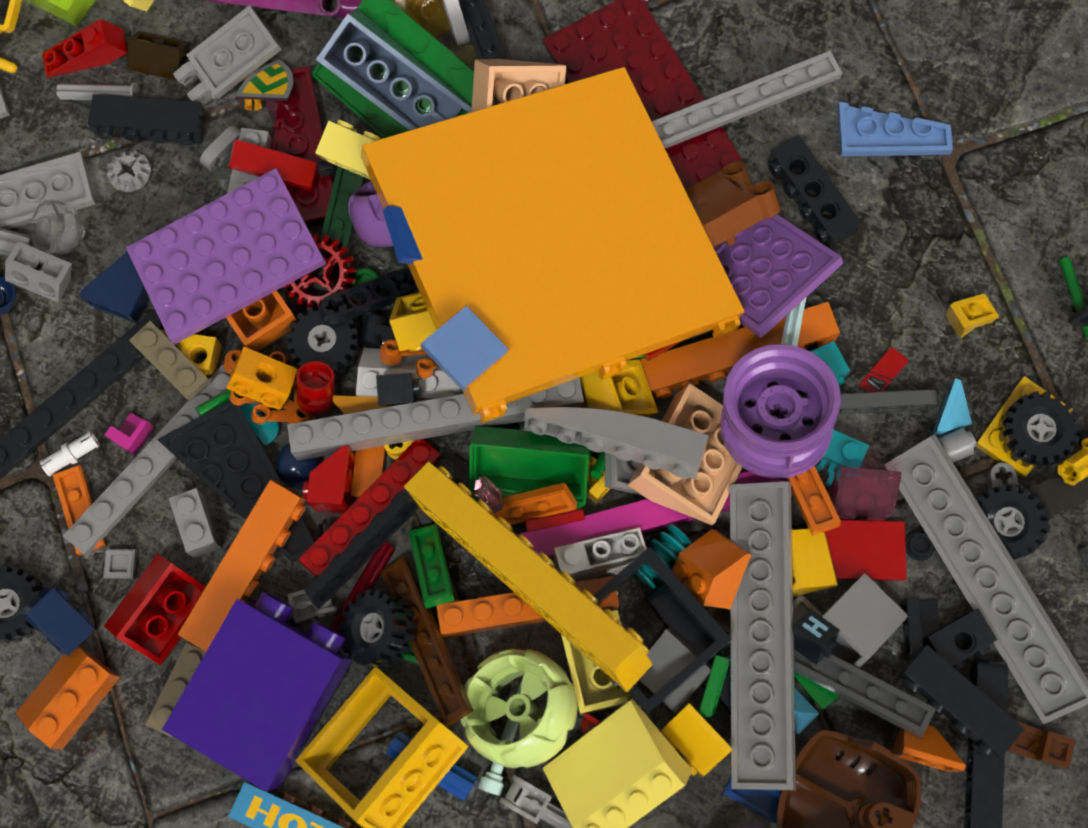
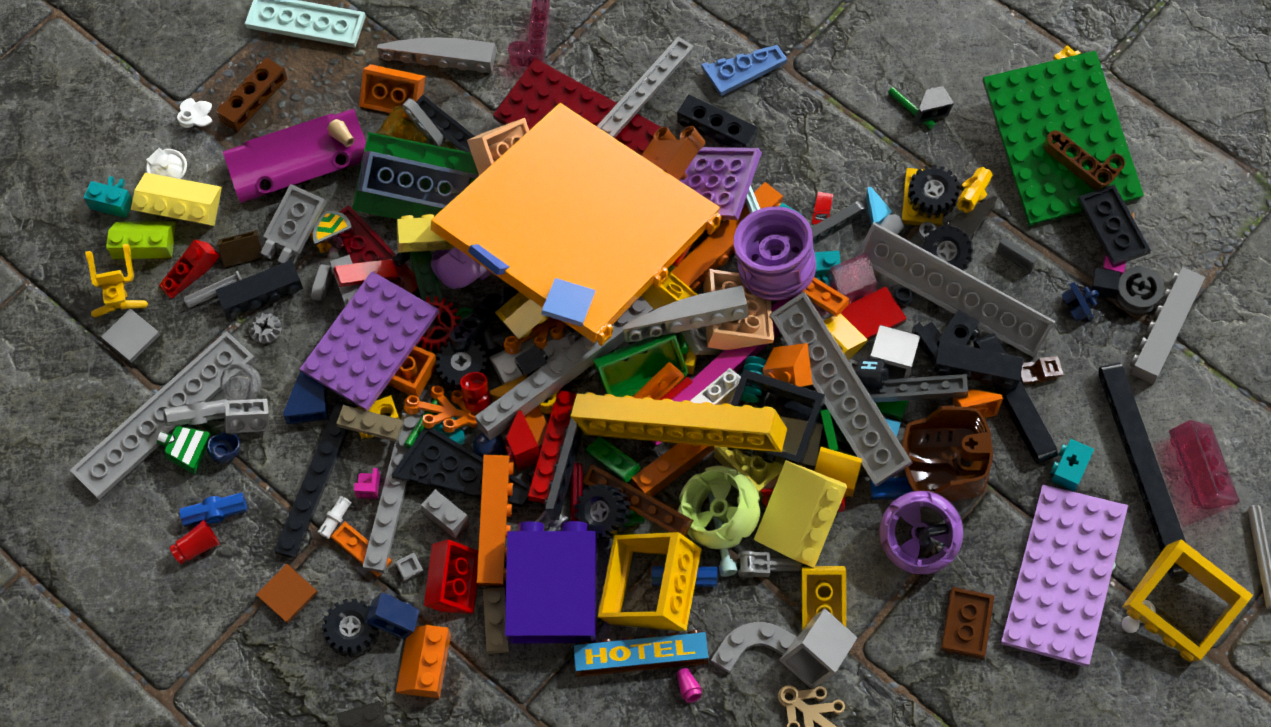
camera: 30 degrees left, 10 degrees down
(261, 378) = (438, 402): light orange brick -> none
(489, 494) = (624, 392): tile -> none
(970, 313) = (853, 147): yellow slope -> none

